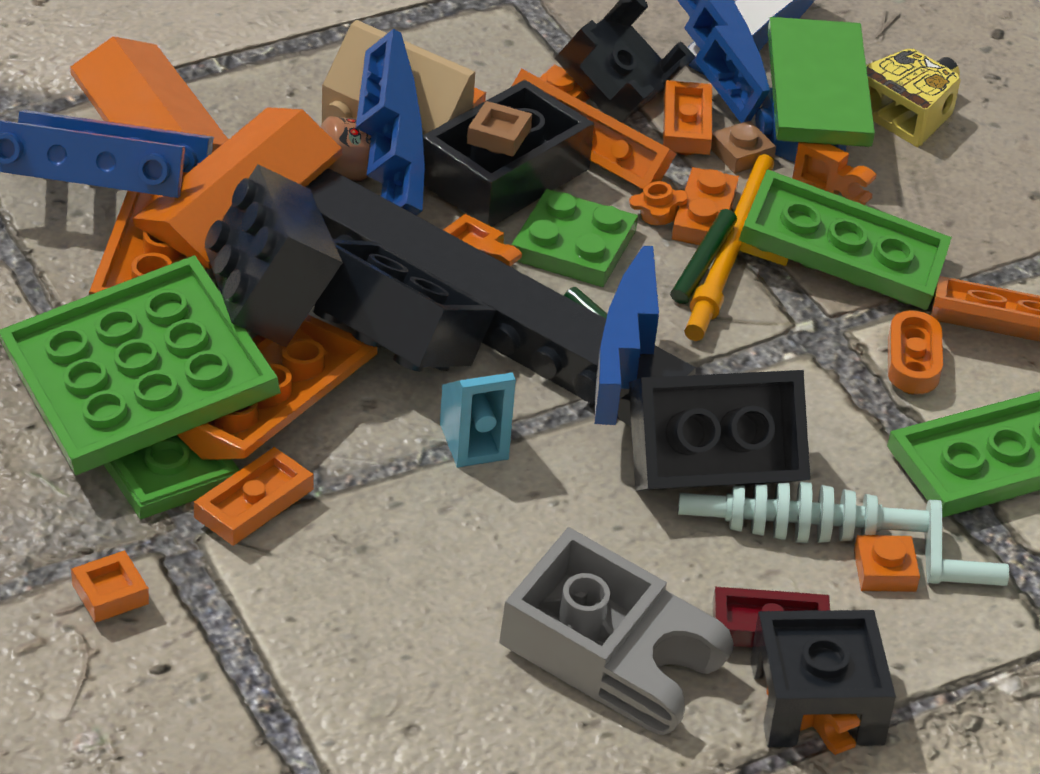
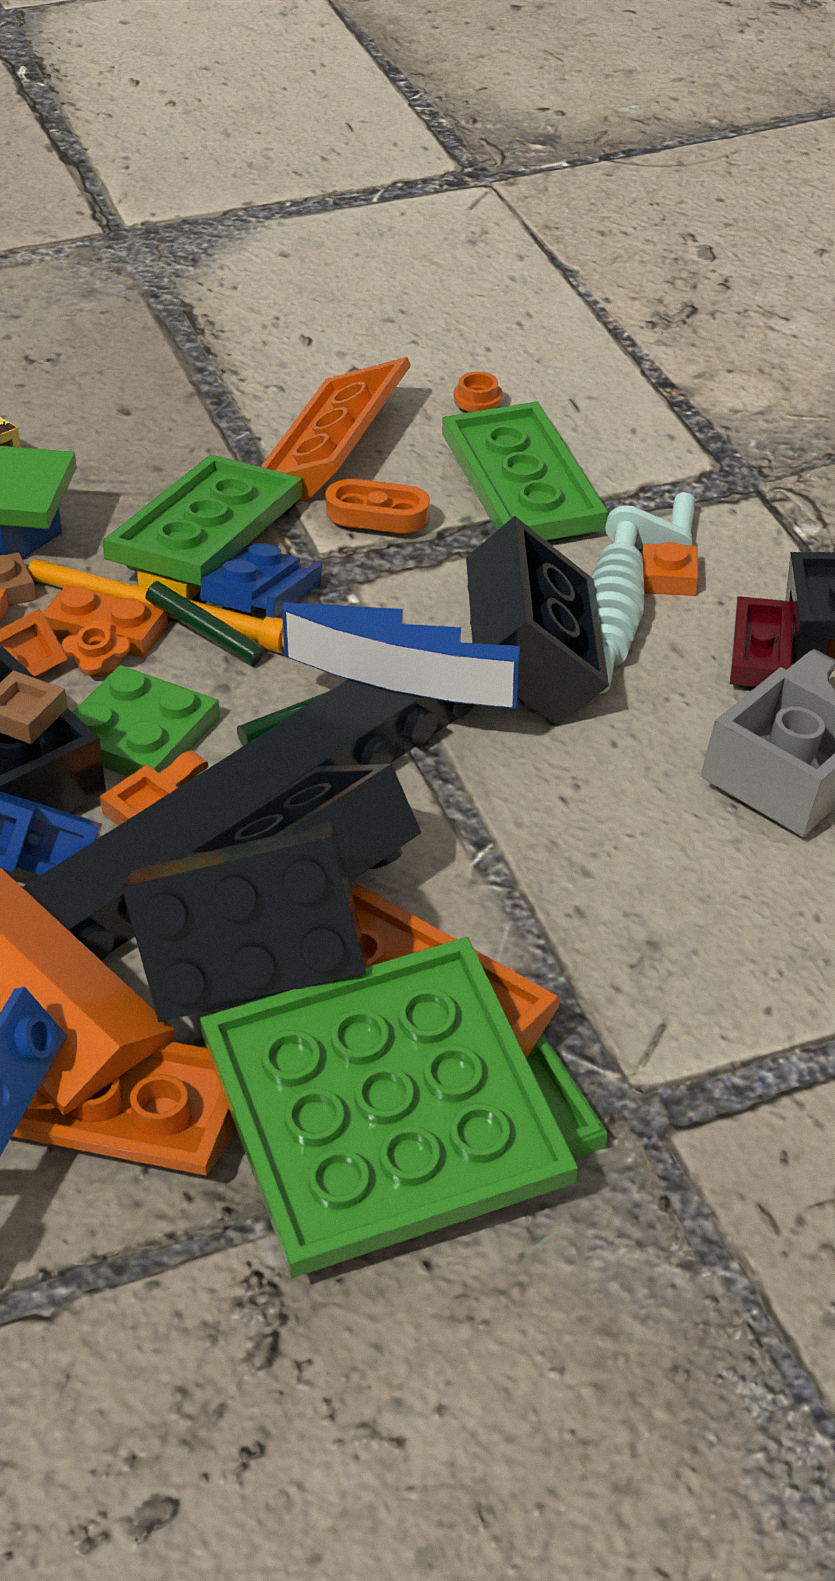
camera: 80 degrees left, 0 degrees up
(110, 586) = (755, 1160): orange plate -> none
(253, 496) = (600, 1022): orange plate -> none
(478, 418) = (478, 802): medium azure slope -> none
(770, 284) = (260, 579): none -> blue plate
(827, 169) = (79, 518): orange plate -> none

